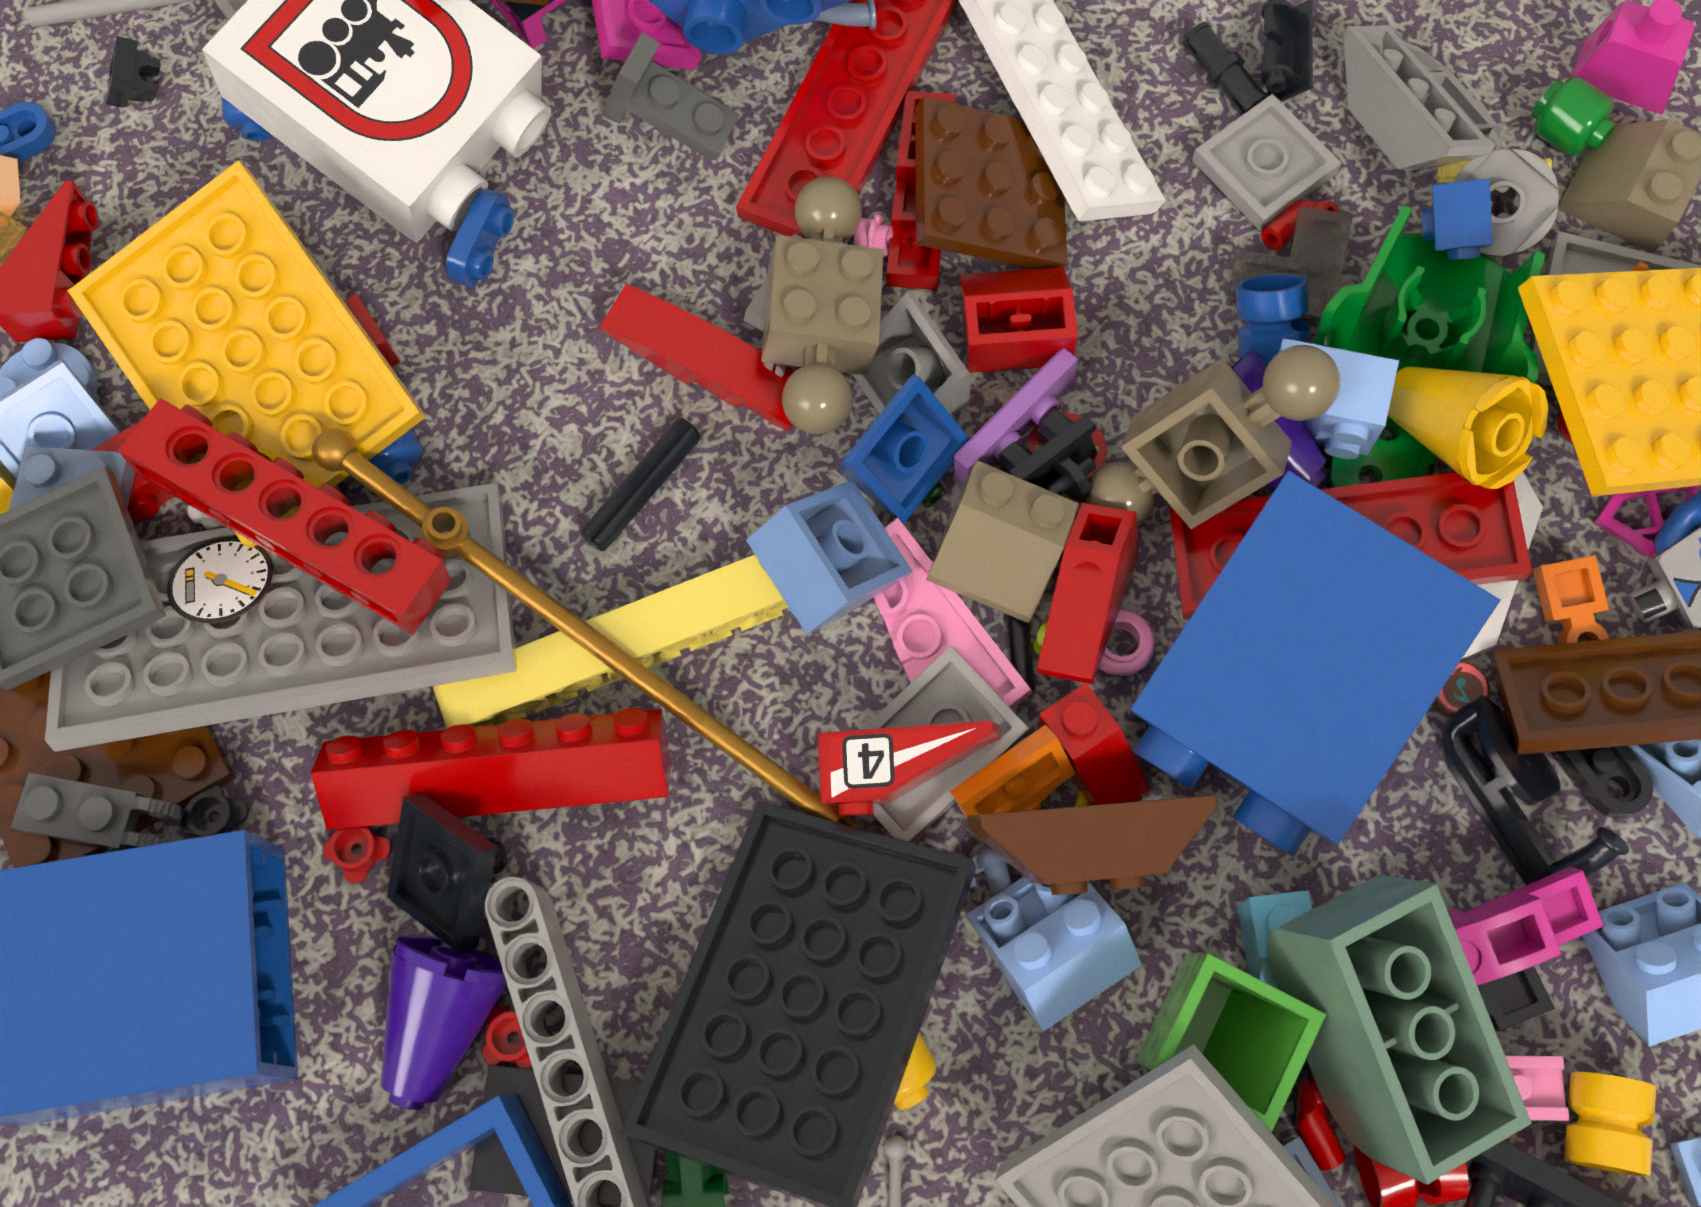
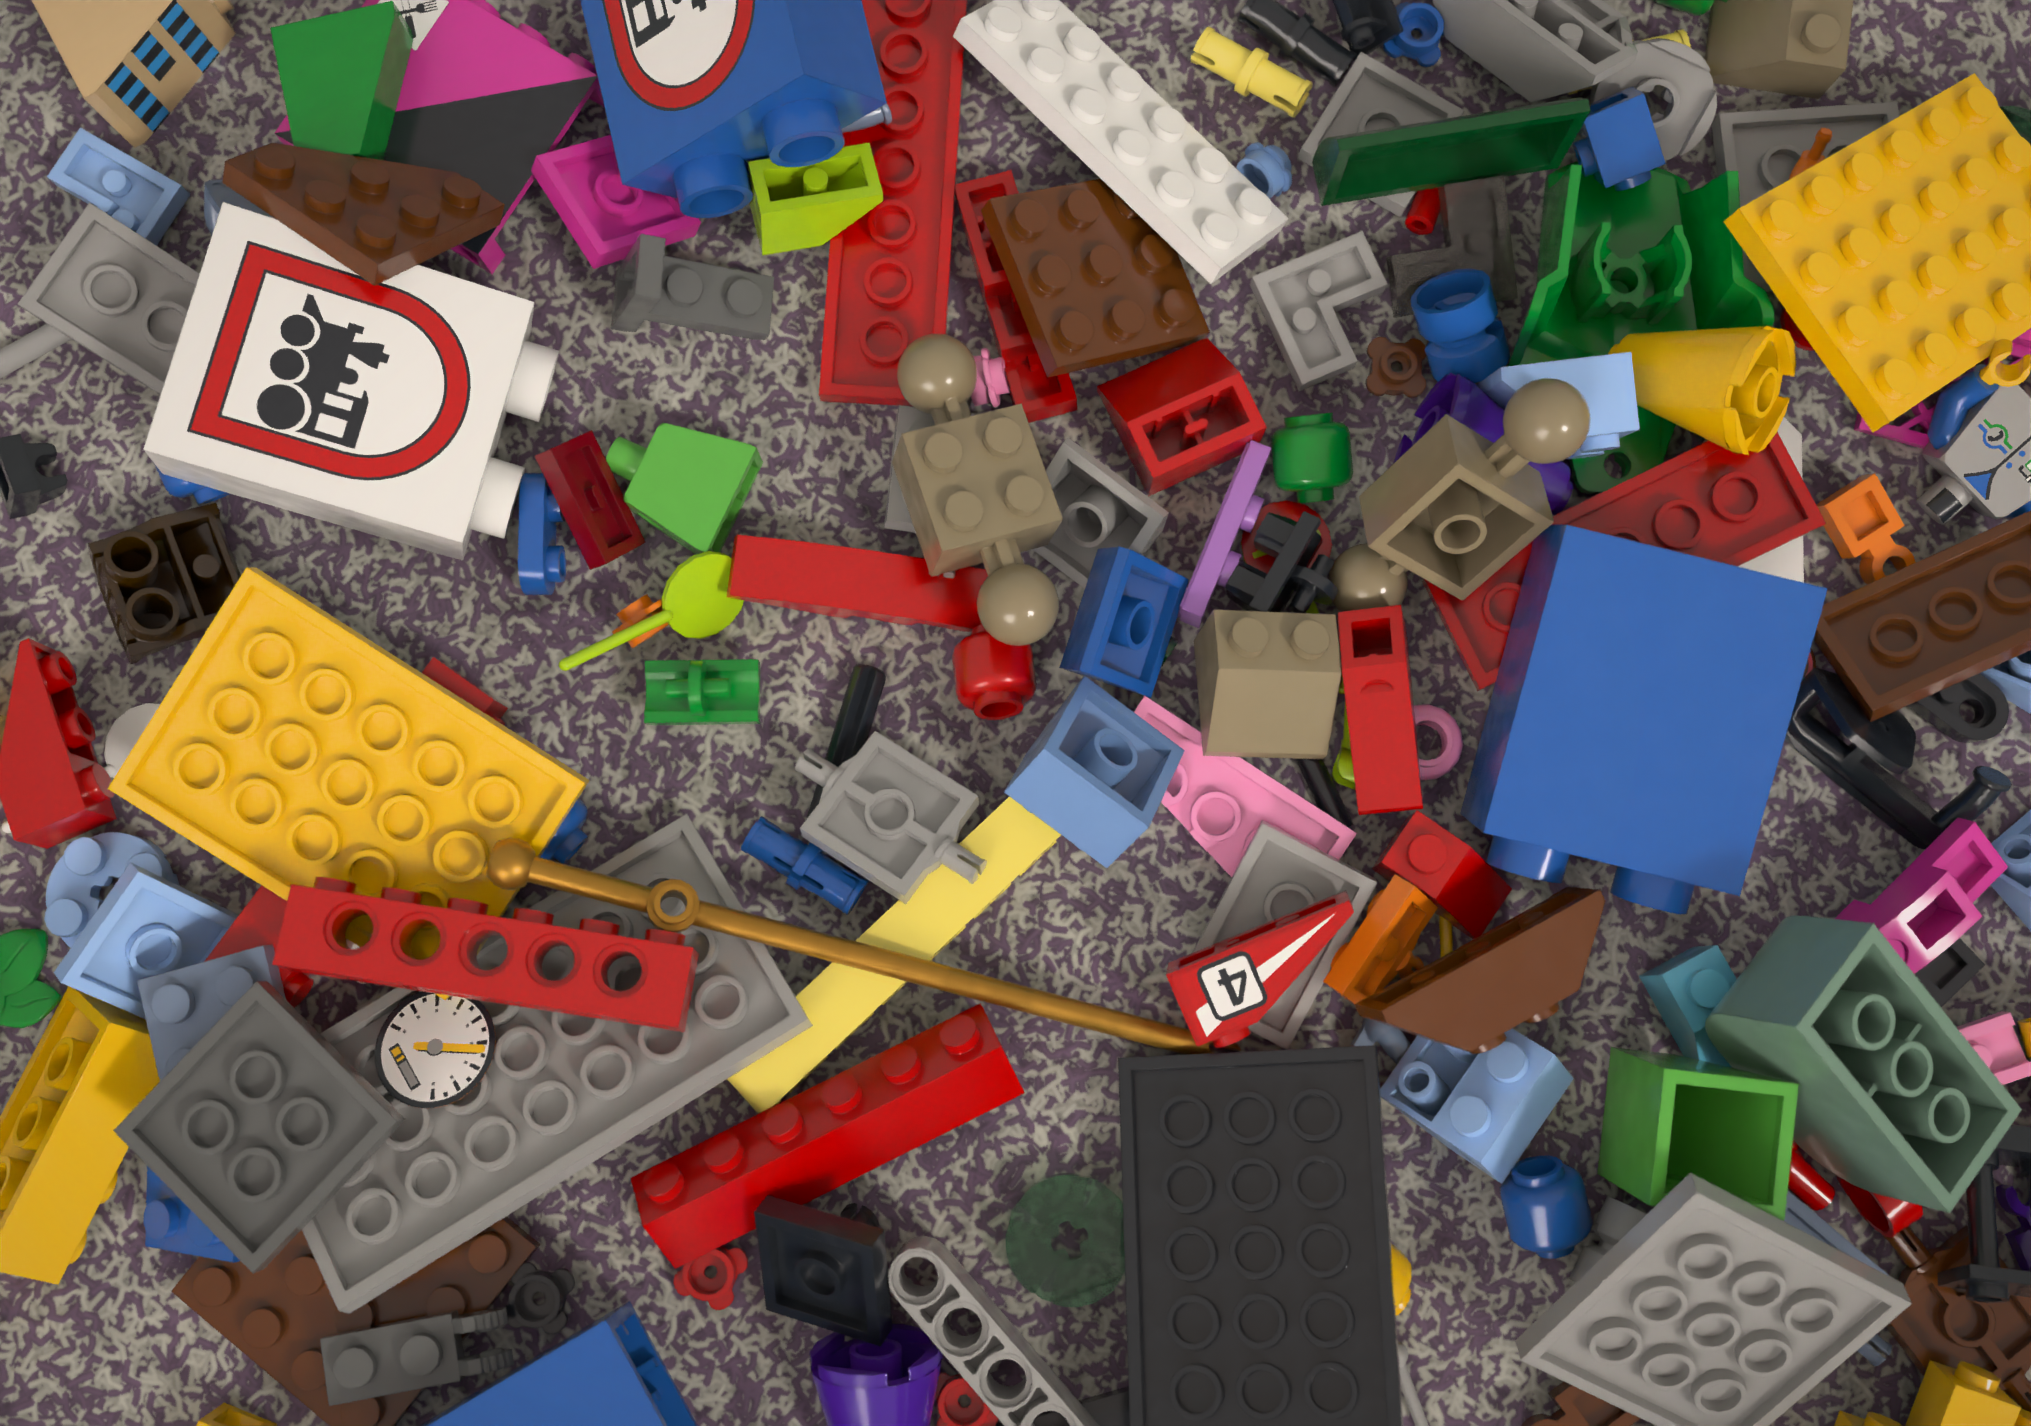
camera: 30 degrees left, 10 degrees up
(183, 163) = (165, 566): none -> dark brown slope
(526, 222) = (590, 499): none -> dark red plate
(528, 327) = (636, 612): none -> orange plate
(549, 393) = (702, 692): none -> green hips
(569, 323) = (692, 605): none -> lime piece
(572, 557) = (804, 865): none -> blue pin
(608, 239) = (687, 483): none -> bright green torso
(634, 911) = (1052, 1272): none -> clear green plate
(651, 536) = (890, 816): none -> light grey plate
(784, 461) = (992, 675): none -> red head
(787, 59) = (813, 202): none -> lime slope
(1075, 1066) = (1546, 1206): none -> blue head
(1112, 382) = (1312, 456): none -> green head
(1155, 262) = (1302, 303): none -> light grey plate
(1162, 157) = (1266, 168): none -> medium blue plate
(1178, 84) = (1251, 72): none -> light yellow pin
(1198, 348) = (1384, 380): none -> reddish brown plate
(1309, 173) = (1447, 151): none -> dark green slope
(1325, 85) = (1419, 18): none -> blue plate

